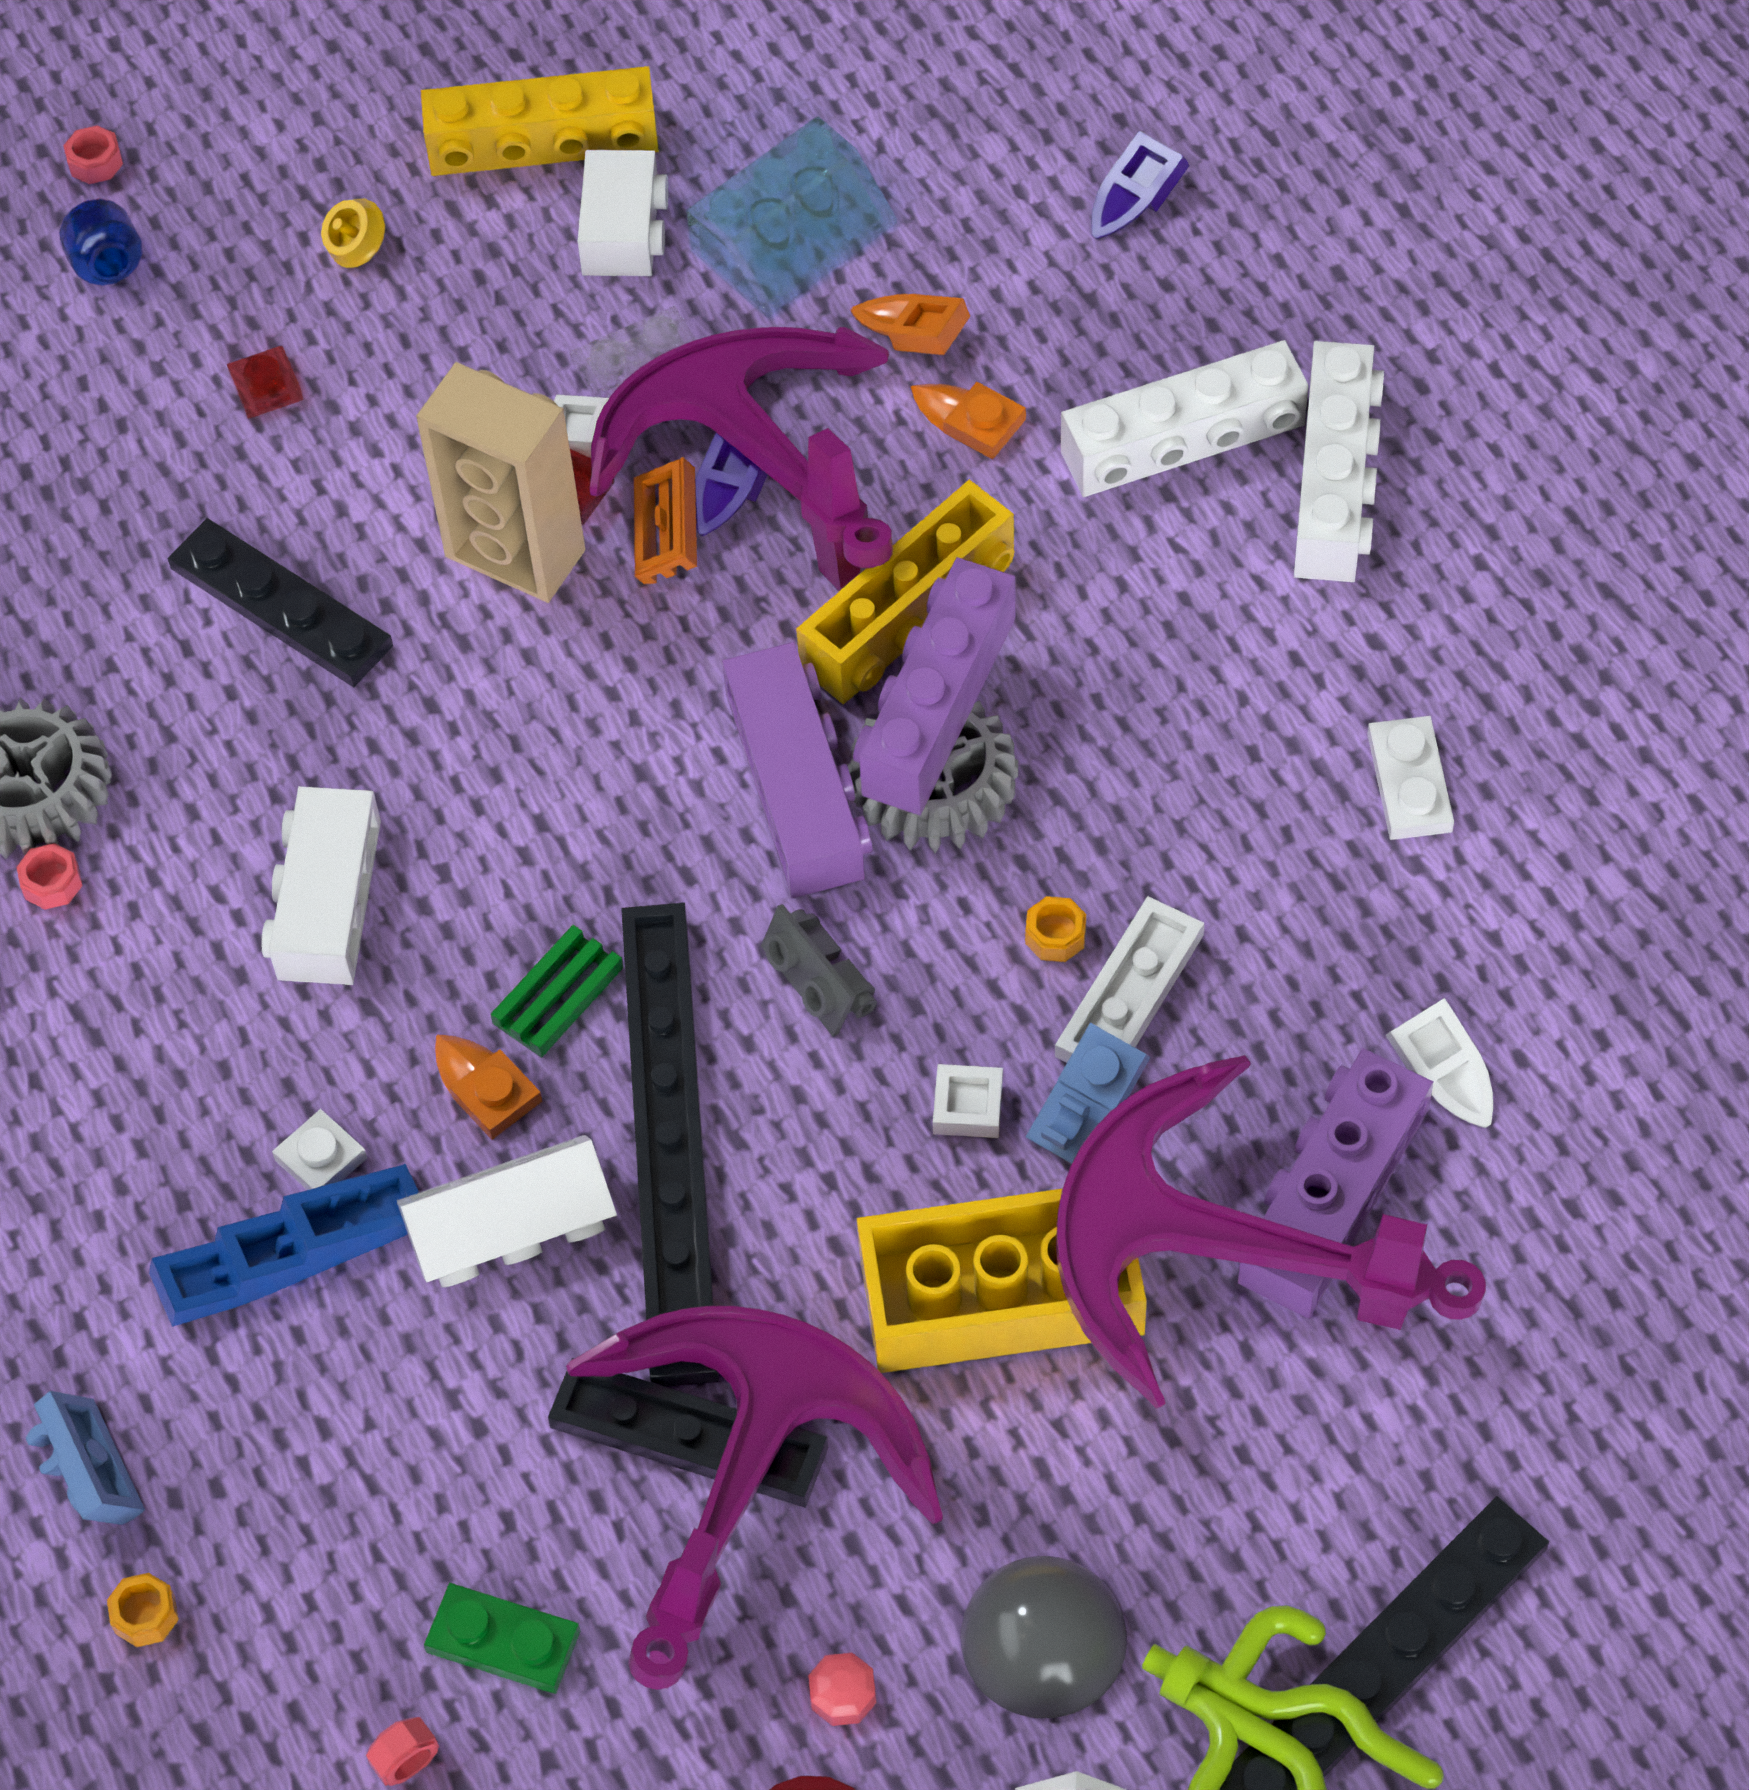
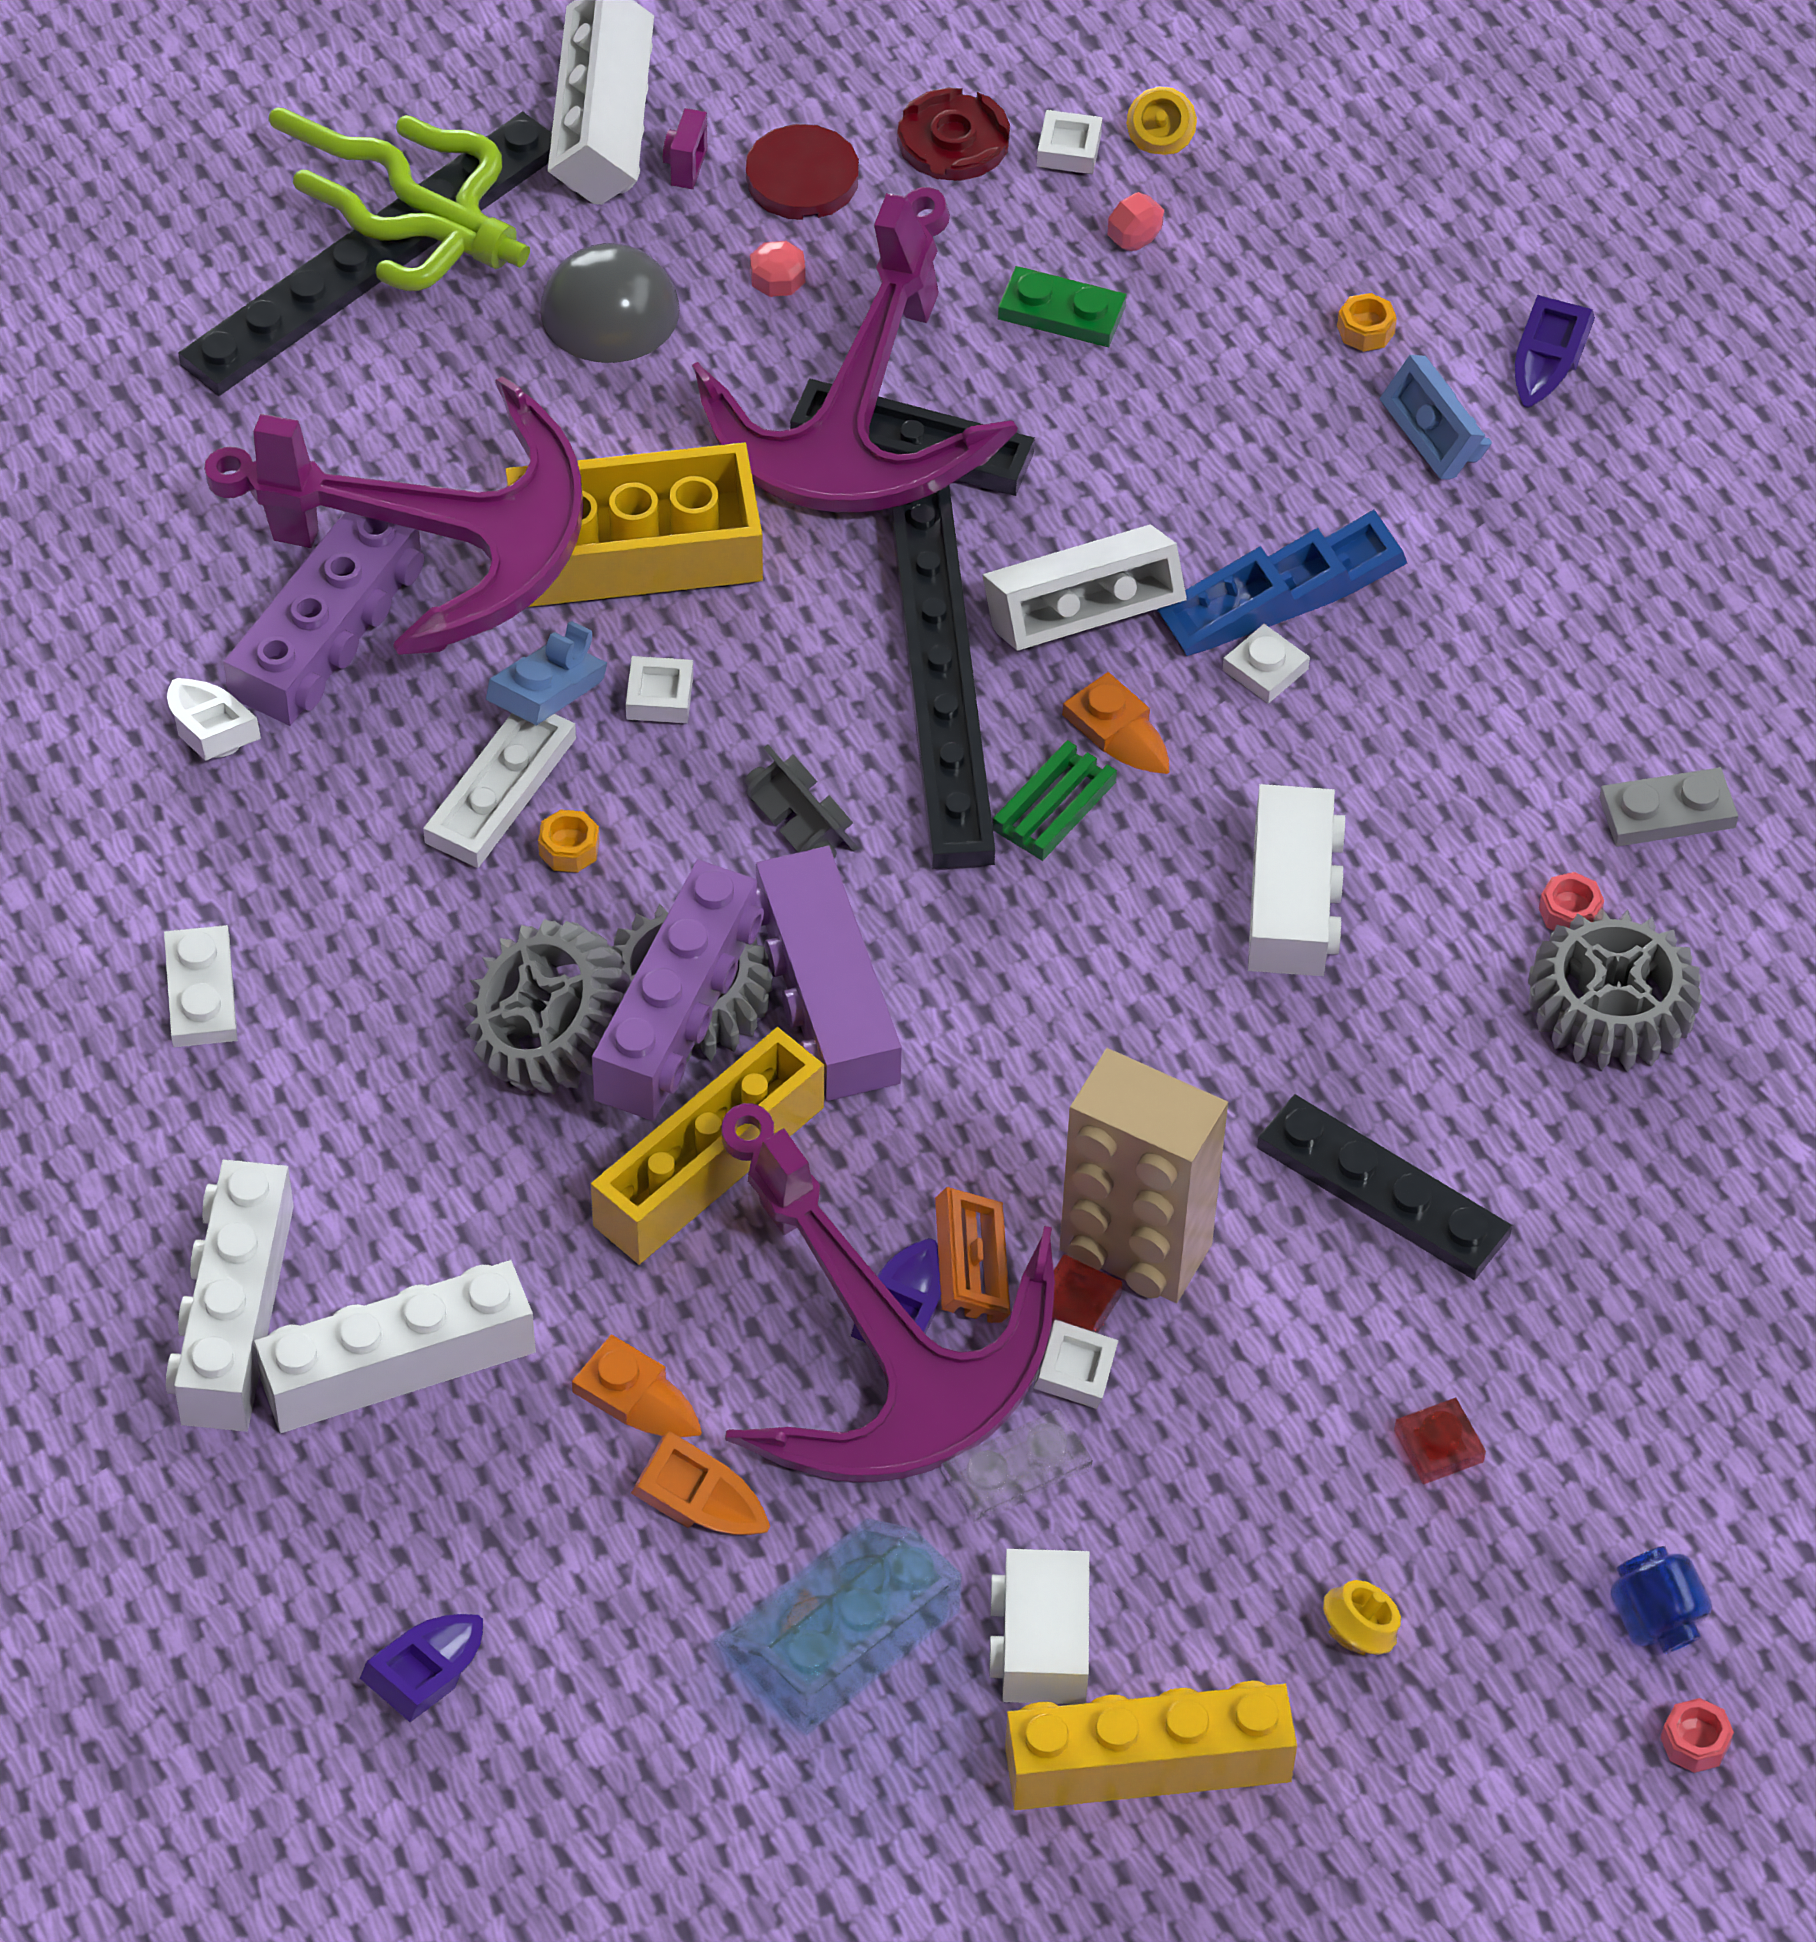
camera: 175 degrees right, 5 degrees down
(1063, 711) = (529, 998): none -> light grey gear

